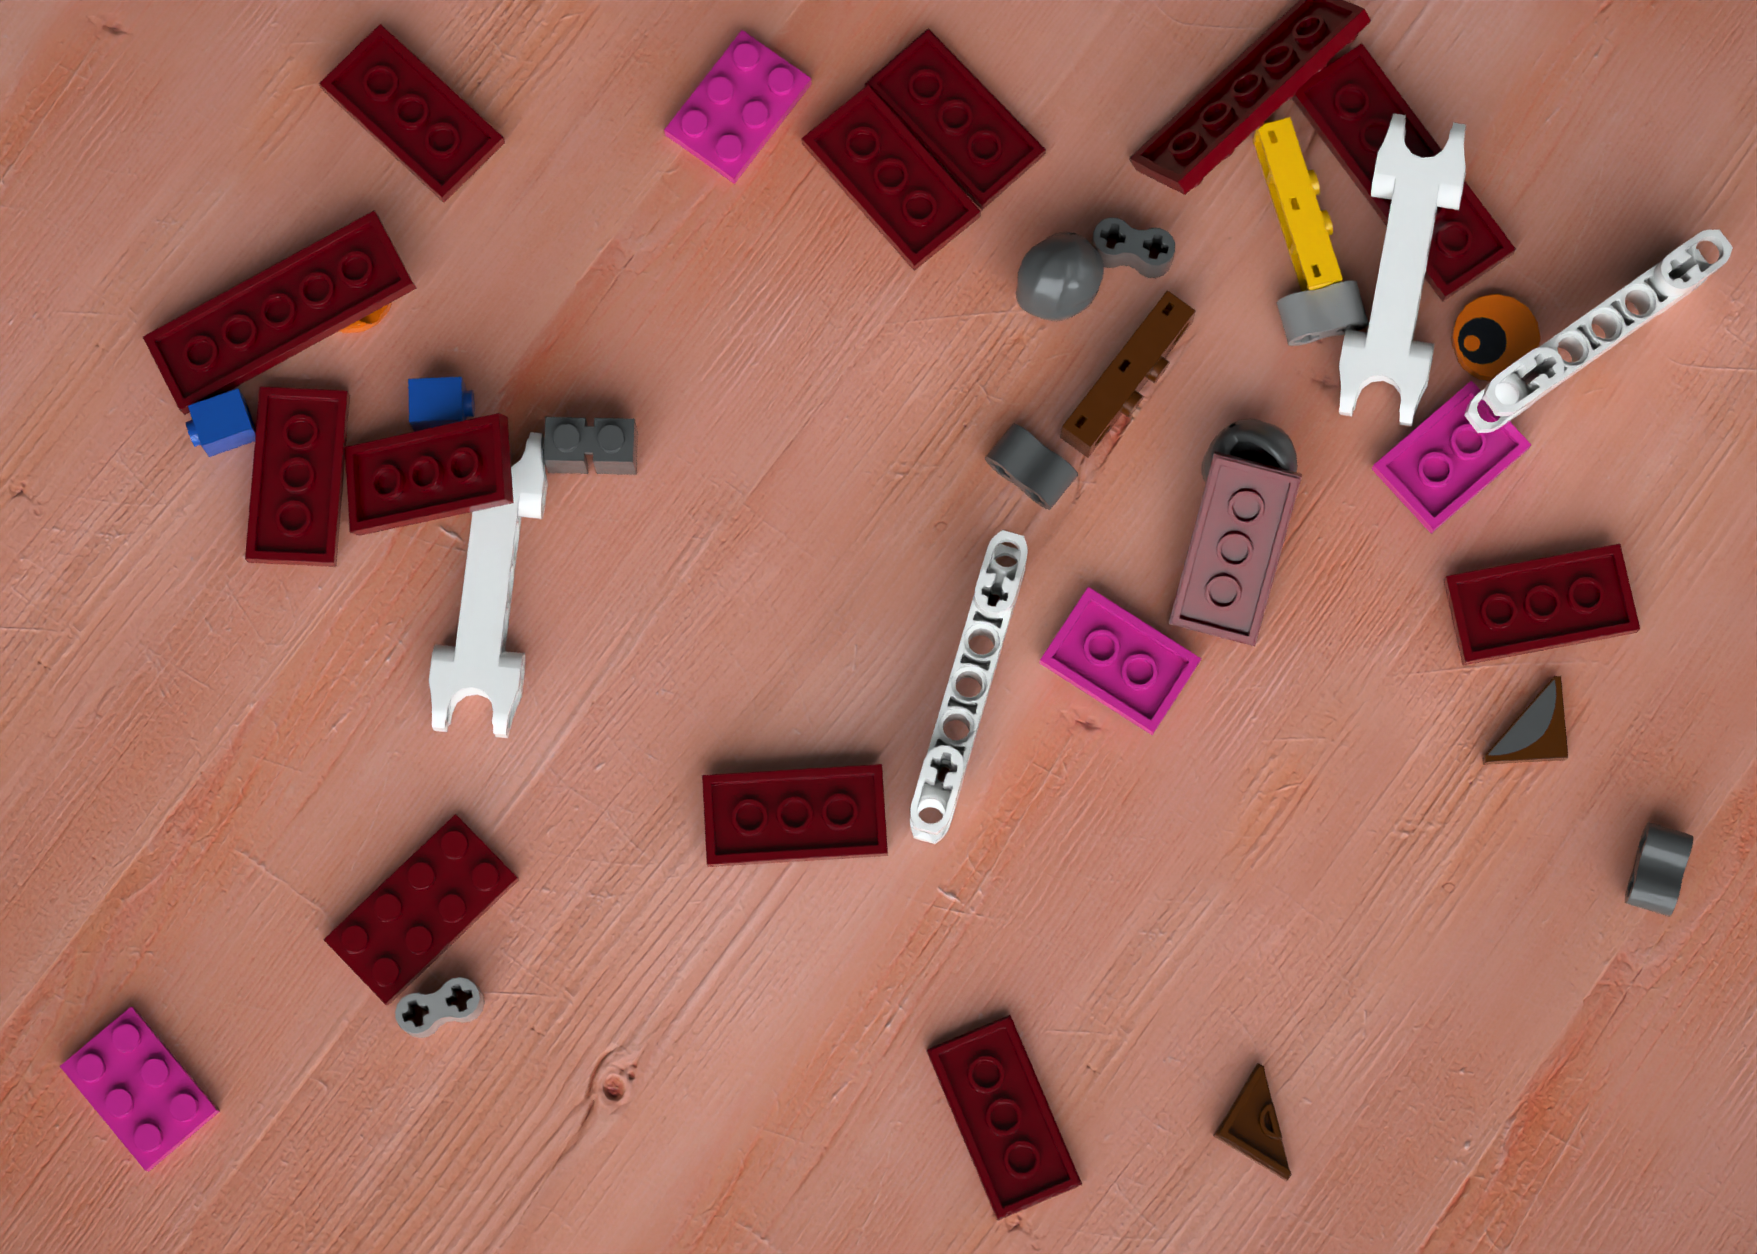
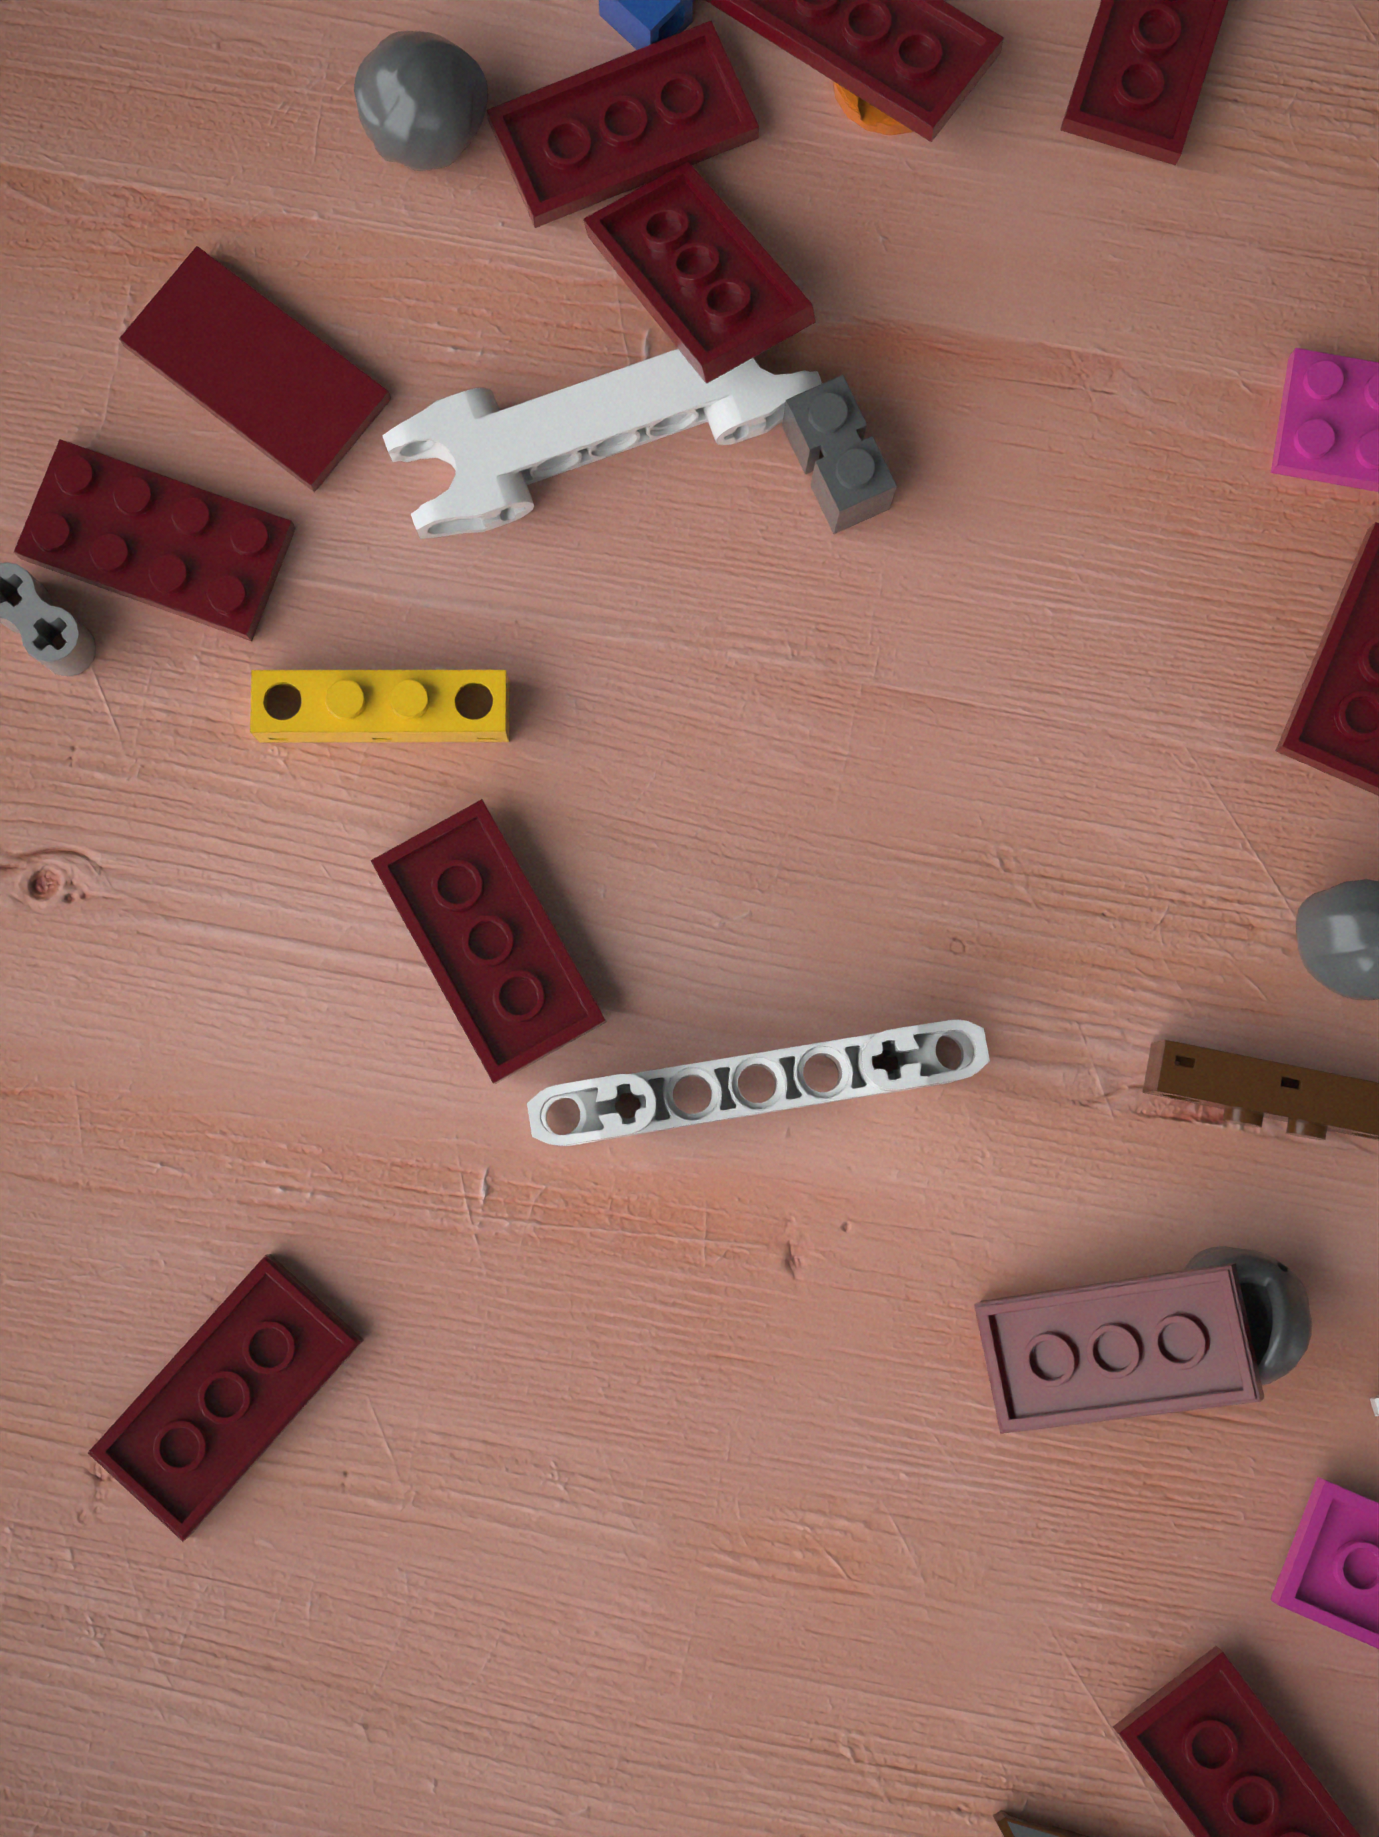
camera: 60 degrees right, 5 degrees up
(218, 597) = (420, 99): none -> dark grey piece
(338, 791) = (255, 368): none -> dark red tile
(439, 402) = (801, 241): blue brick -> none
(608, 812) = (380, 706): none -> yellow piece
(1031, 466) = (1093, 1025): dark grey axle -> none
(1120, 660) = (893, 1265): dark pink plate -> none
(1254, 1127) = (365, 1730): reddish brown tile -> none

